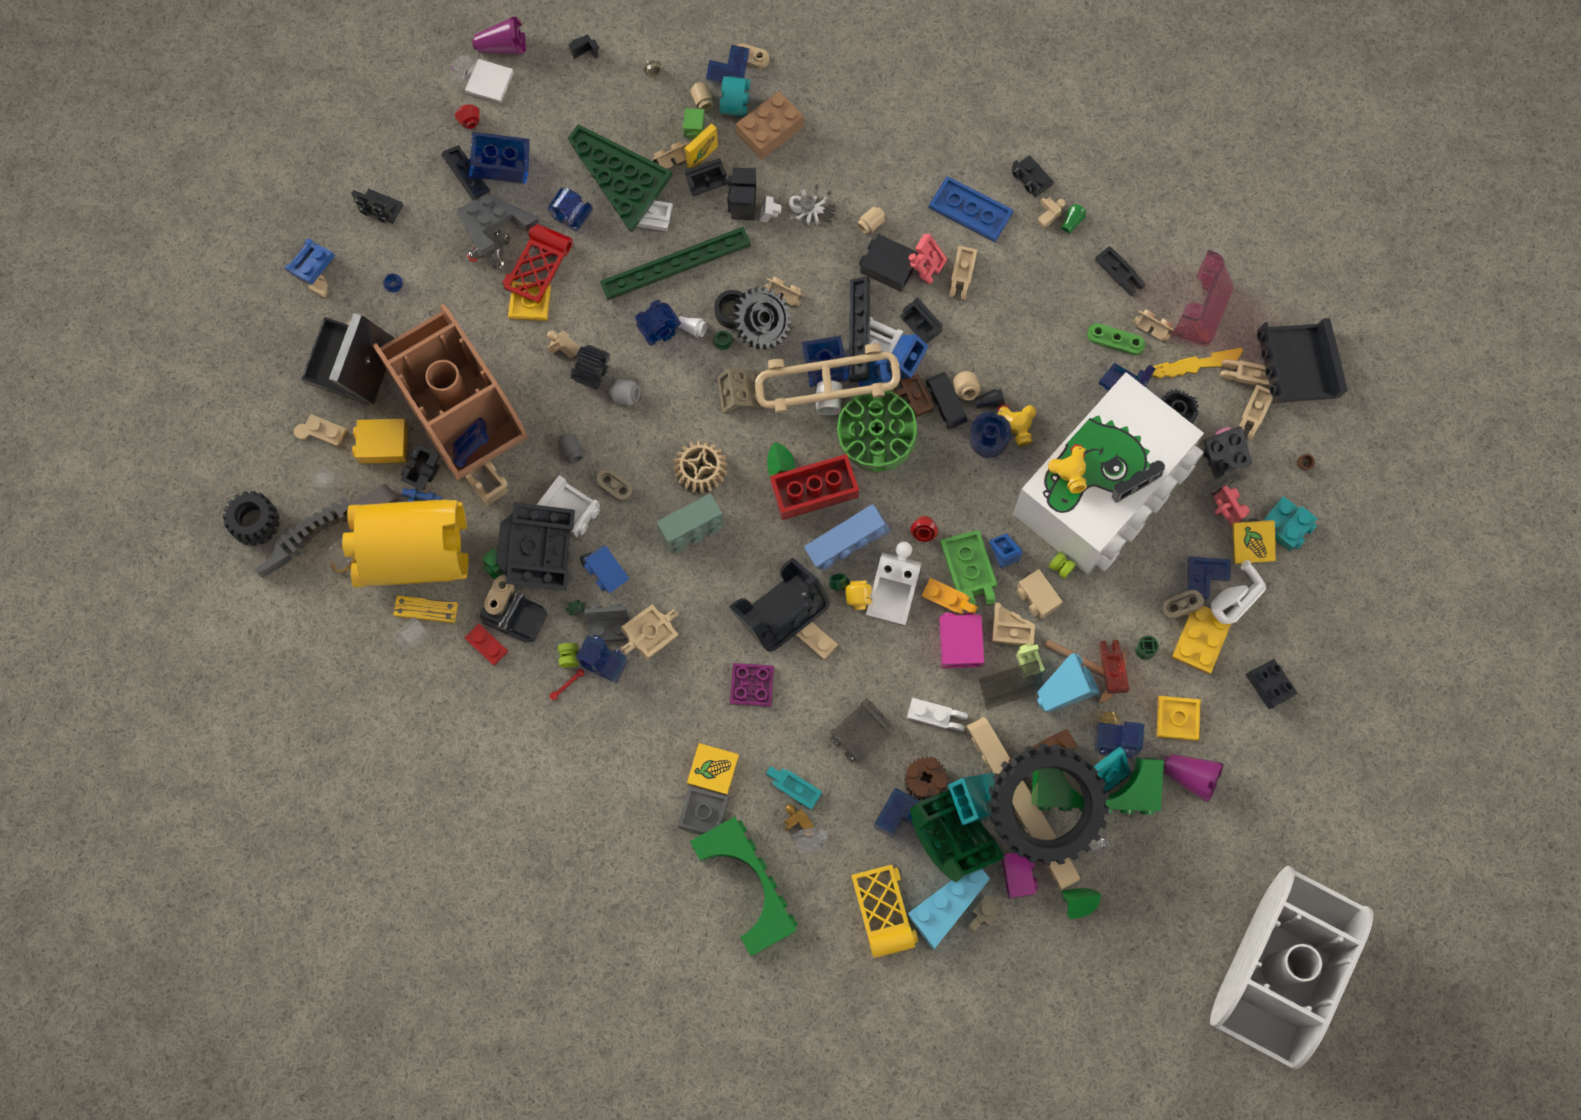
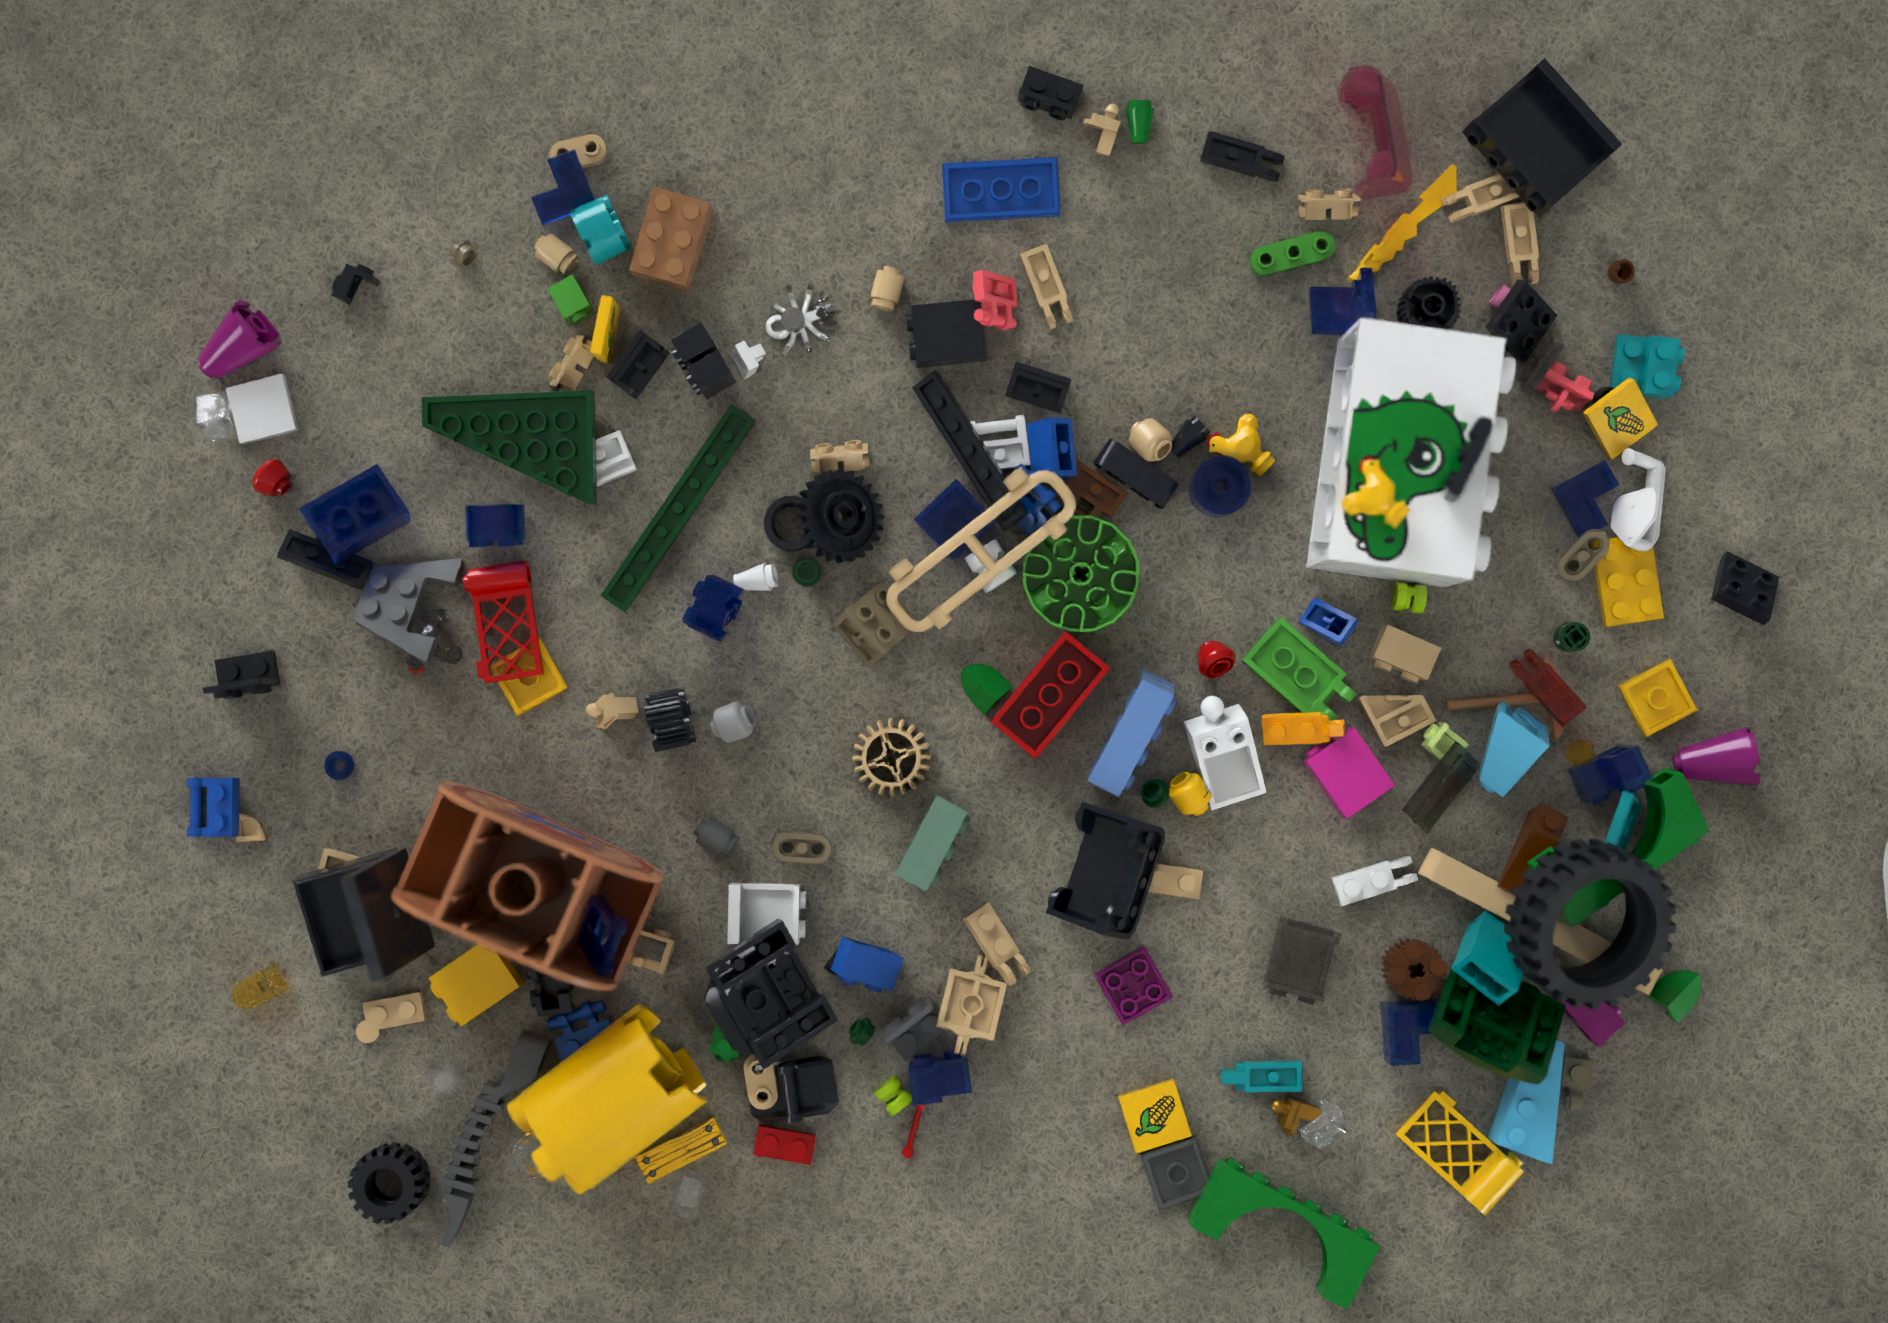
camera: 30 degrees left, 15 degrees up
(254, 370) = (251, 992): none -> clear yellow plate
(688, 607) = (996, 942): none -> tan hinge

